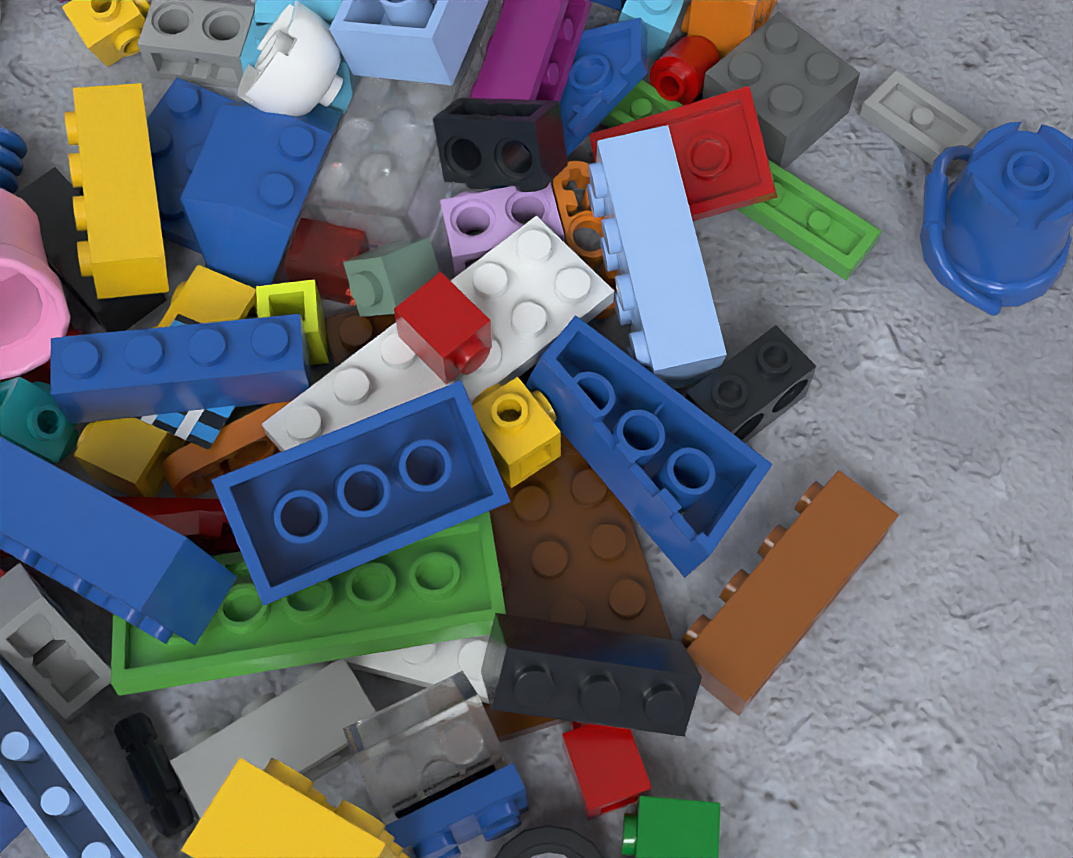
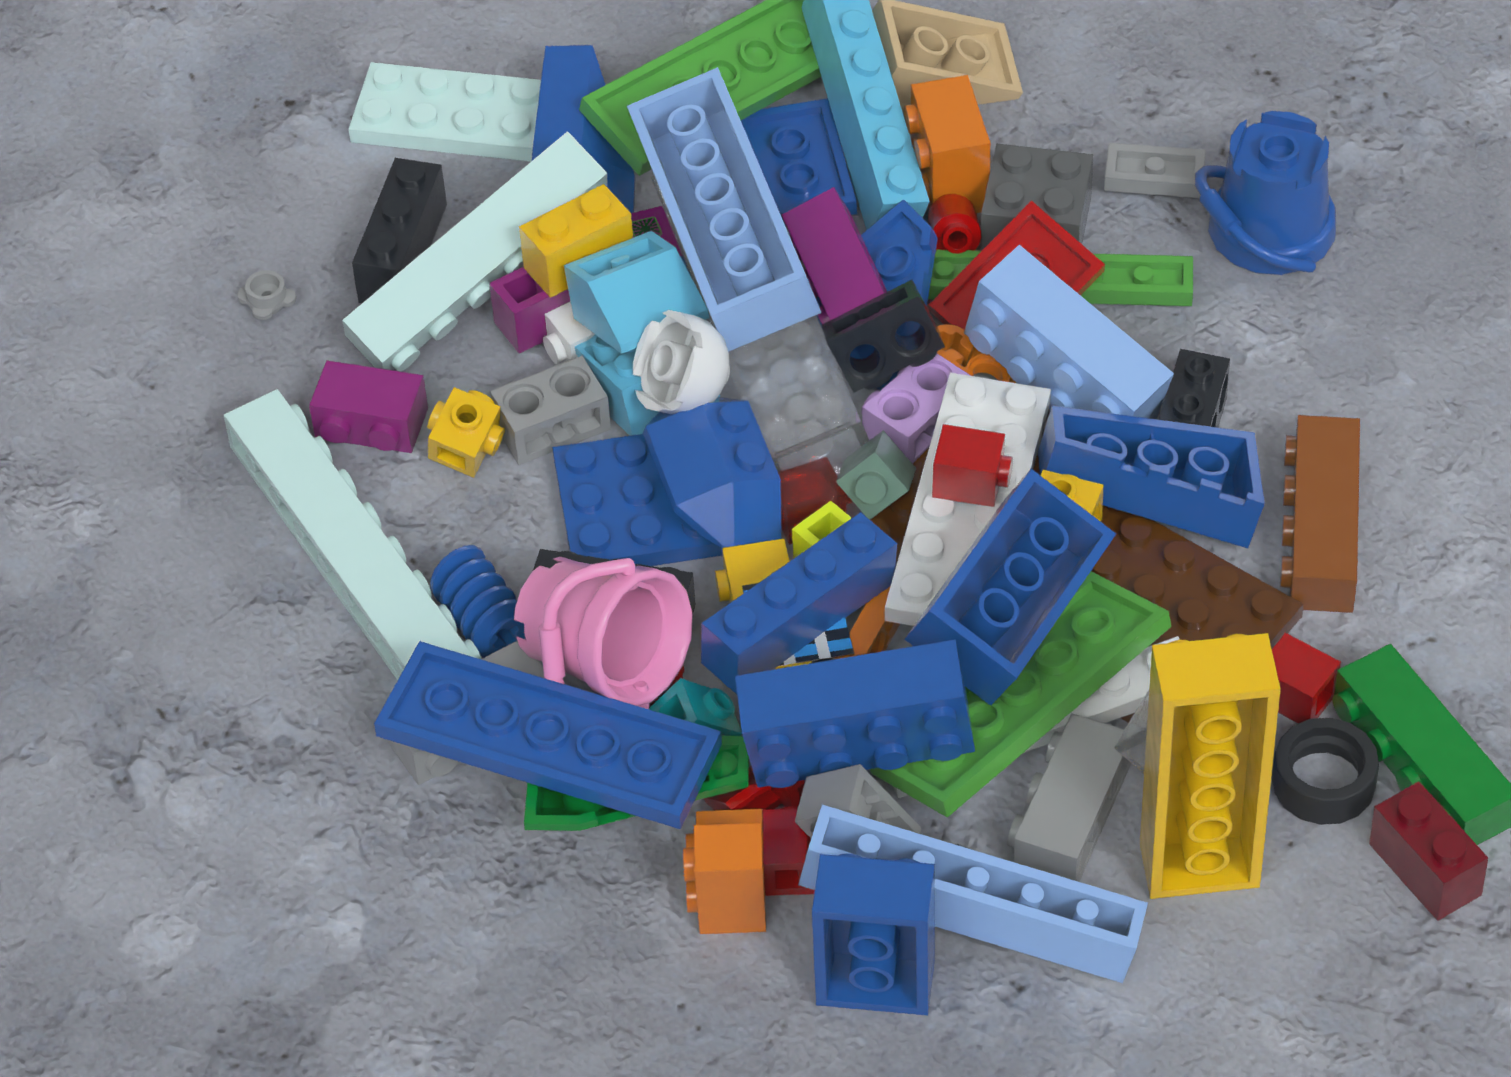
camera: 35 degrees left, 15 degrees down
(118, 190) = (618, 520): yellow brick -> none
(589, 675) = (1258, 608): black brick -> none

